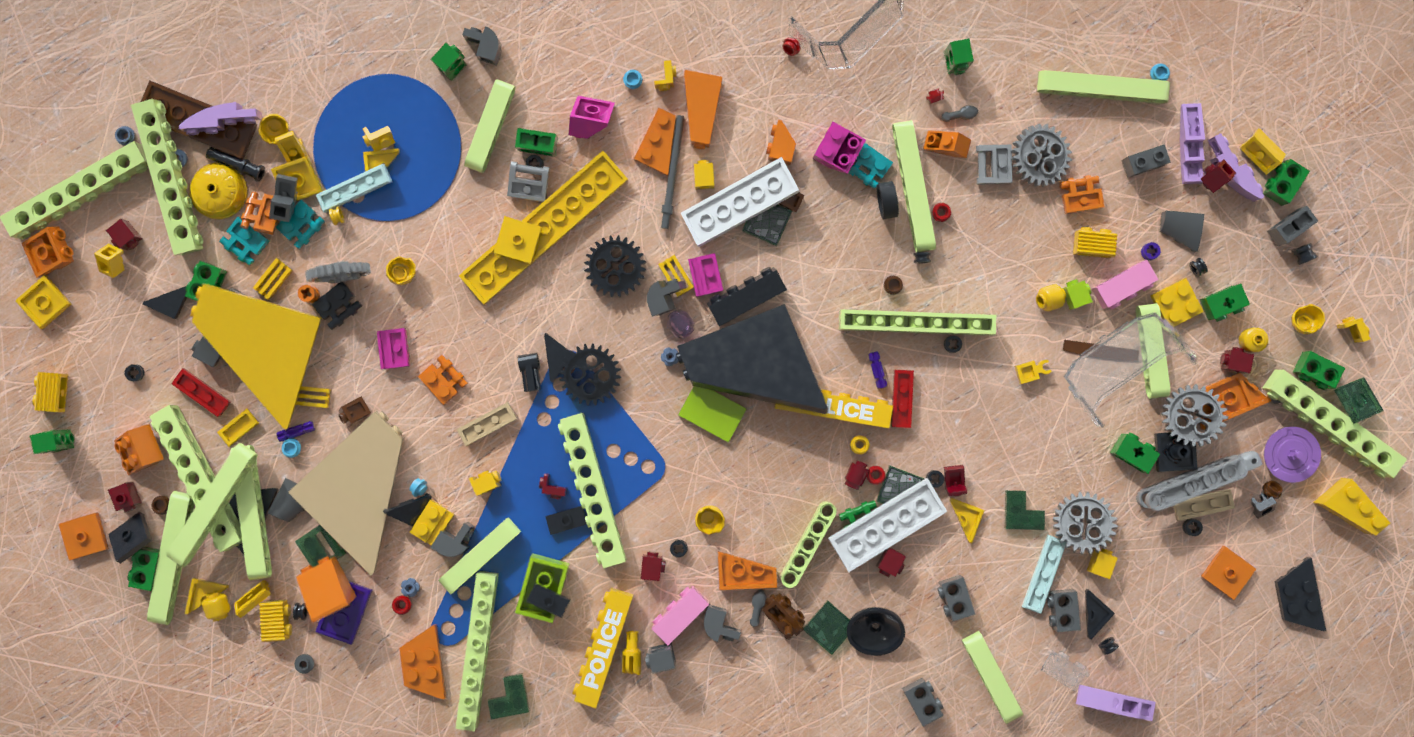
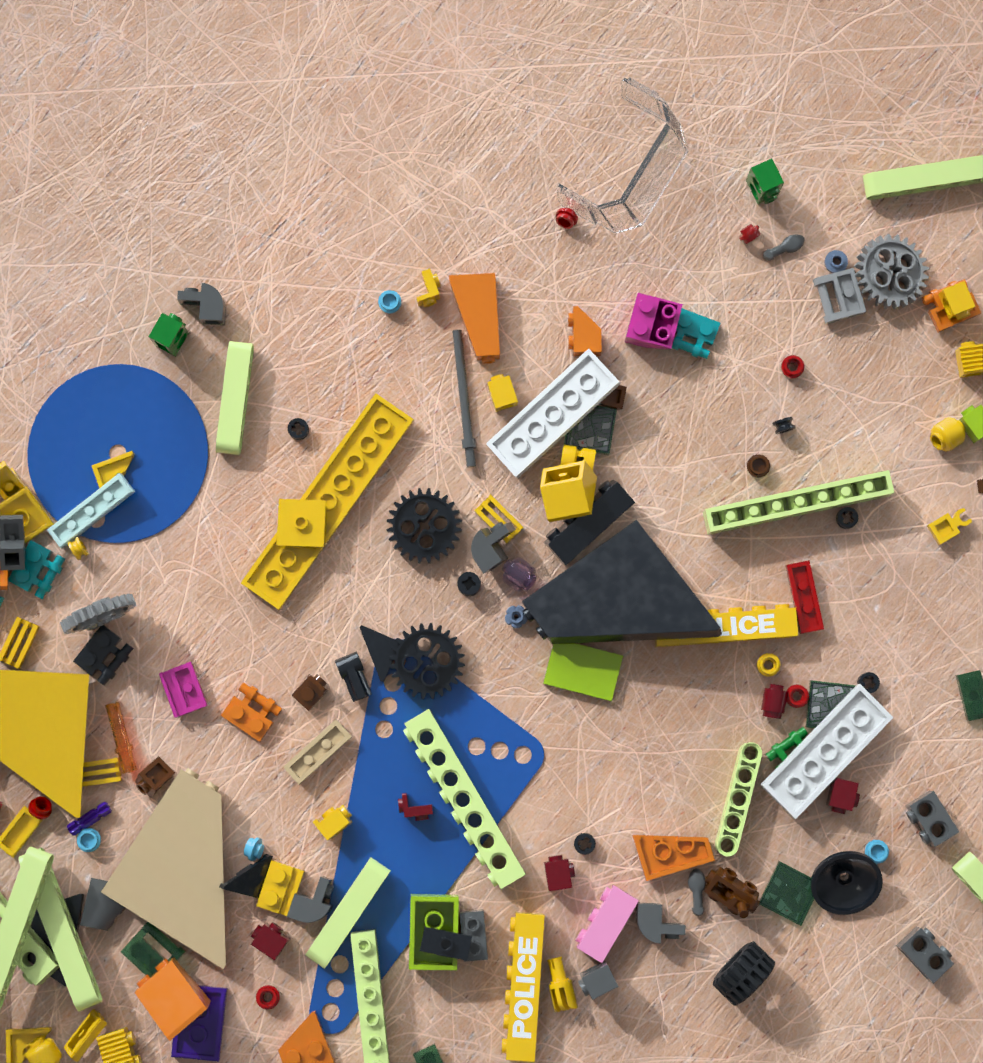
camera: 15 degrees left, 5 degrees down
(261, 410) = (40, 807): none -> red plate
(300, 611) = (147, 1036): black bush -> none
(302, 293) = (64, 642): orange bush -> none
(335, 374) = (121, 739): none -> clear orange pin
(379, 139) = (107, 446): yellow bracket -> none
(400, 270) = (170, 594): yellow hair -> none
(410, 592) = (266, 973): sand blue plate -> none
(413, 561) = (269, 940): none -> dark red brick
(493, 375) = (310, 691): none -> reddish brown bracket
(528, 188) = (296, 459): light grey plate -> none
(536, 142) = (295, 403): green brick -> none
(566, 520) = (441, 843): black plate -> none
(575, 591) = (473, 924): none -> dark grey brick
(589, 116) = (350, 358): dark pink slope -> none
(639, 321) = (465, 582): none -> black wheel
(657, 142) = (437, 368): orange wing -> none
(705, 275) = (531, 509): dark pink plate -> none
(710, 520) = (613, 799): yellow hair -> none
(736, 267) = (568, 490): none -> yellow slope
(743, 242) = (571, 453): none -> yellow wheel
(776, 681) = (744, 973): none -> black tyre
(877, 369) = (766, 570): dark purple axle -> none
(887, 200) = (725, 368): black tyre -> none
(906, 612) = (877, 851): none -> medium azure plate
(914, 186) = (752, 344): yellowish green beam -> none
(947, 143) = (778, 285): orange slope -> none
(955, 480) = (892, 678): dark red bracket -> none
(968, 517) = (920, 718): yellow tile -> none
(994, 140) = (830, 266): none -> sand blue plate
(1087, 192) = (957, 301): none -> yellow brick

